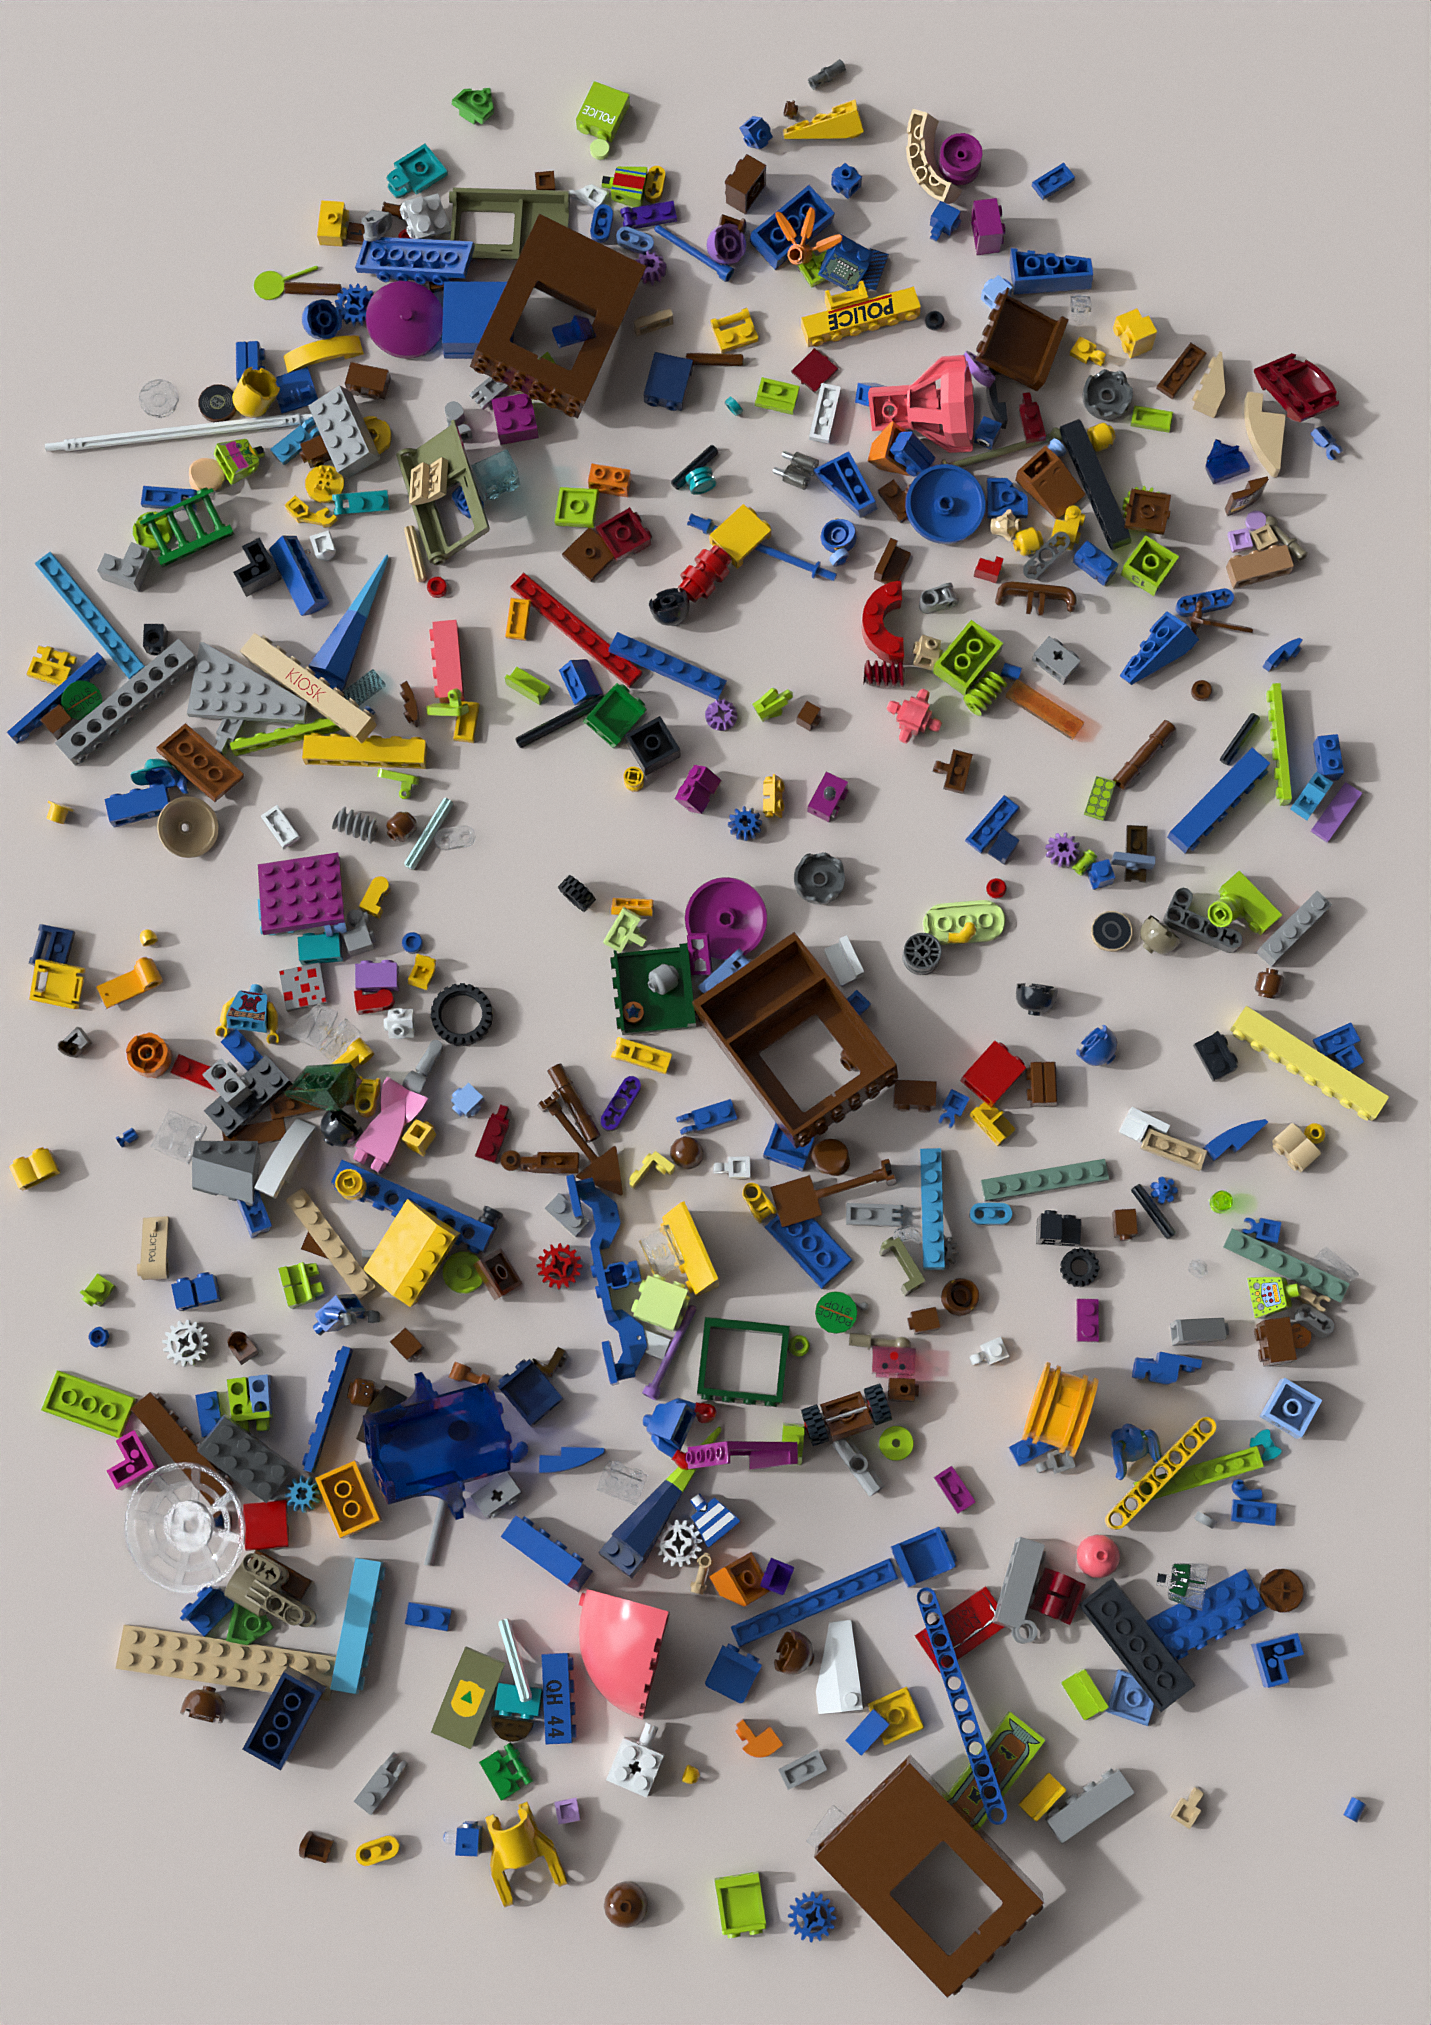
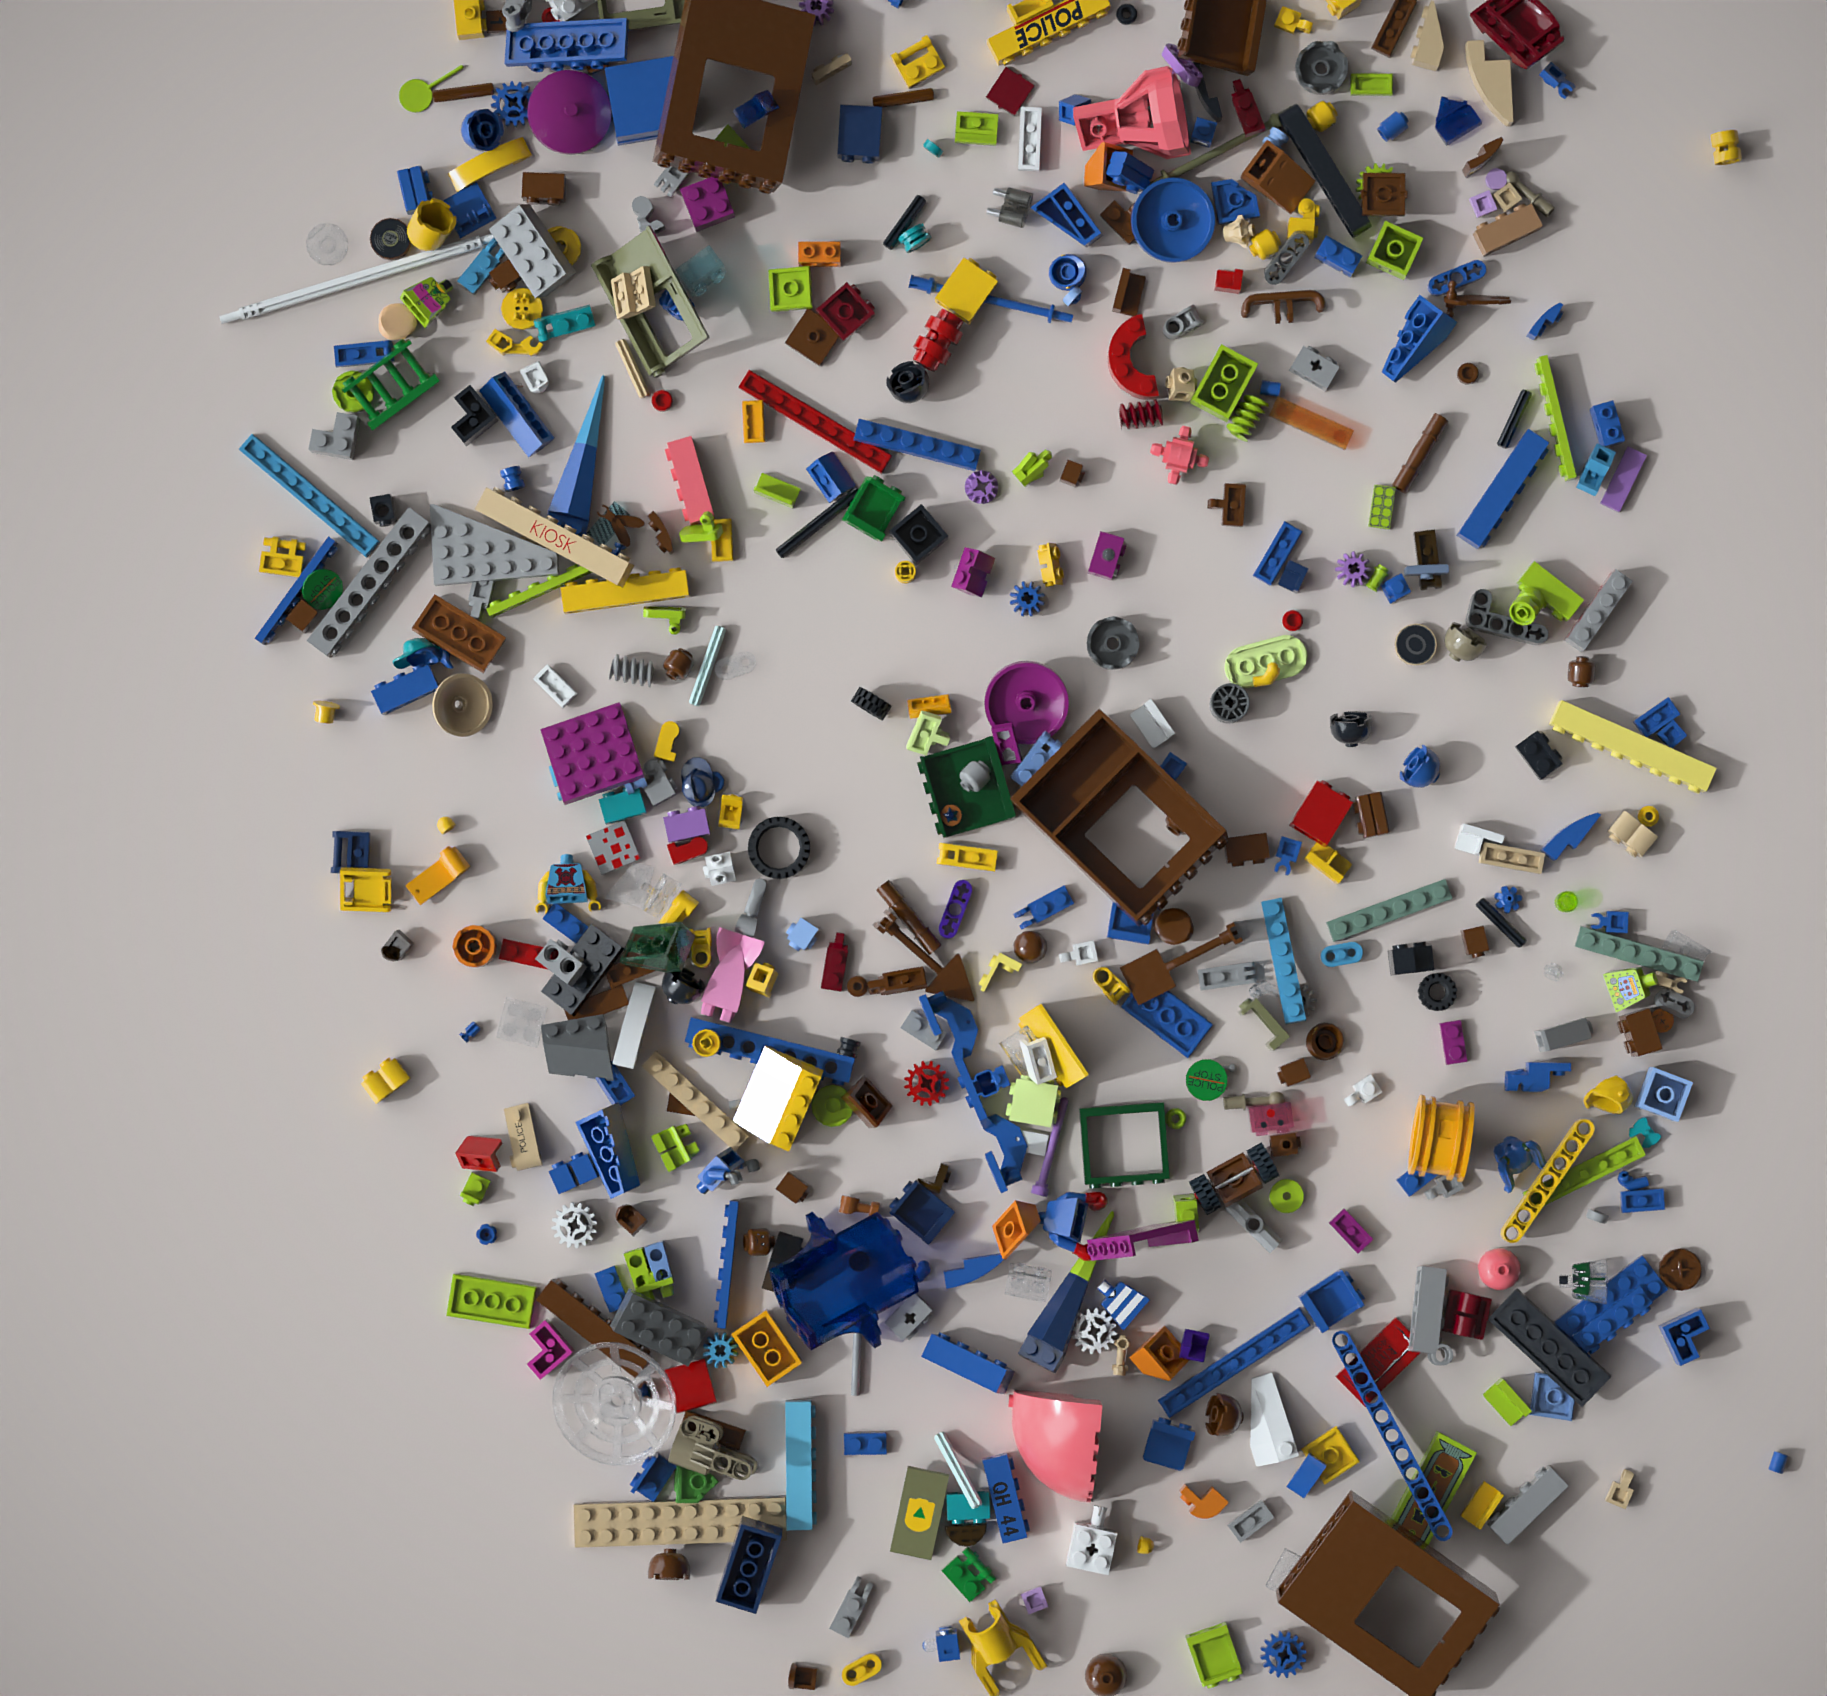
camera: 10 degrees left, 10 degrees up
(107, 1256) = (479, 1153): none -> red panel
(236, 1273) = (610, 1149): none -> blue wedge
(281, 631) = (512, 478): none -> blue wheel
(372, 688) = (618, 523): none -> reddish brown piece
(397, 940) = (698, 782): none -> dark blue piece
(620, 1422) = (1015, 1226): none -> orange slope
(672, 1259) = (1038, 1060): none -> white panel
(1166, 457) = (1393, 126): none -> blue brick
(1236, 1400) = (1610, 1095): none -> yellow helmet

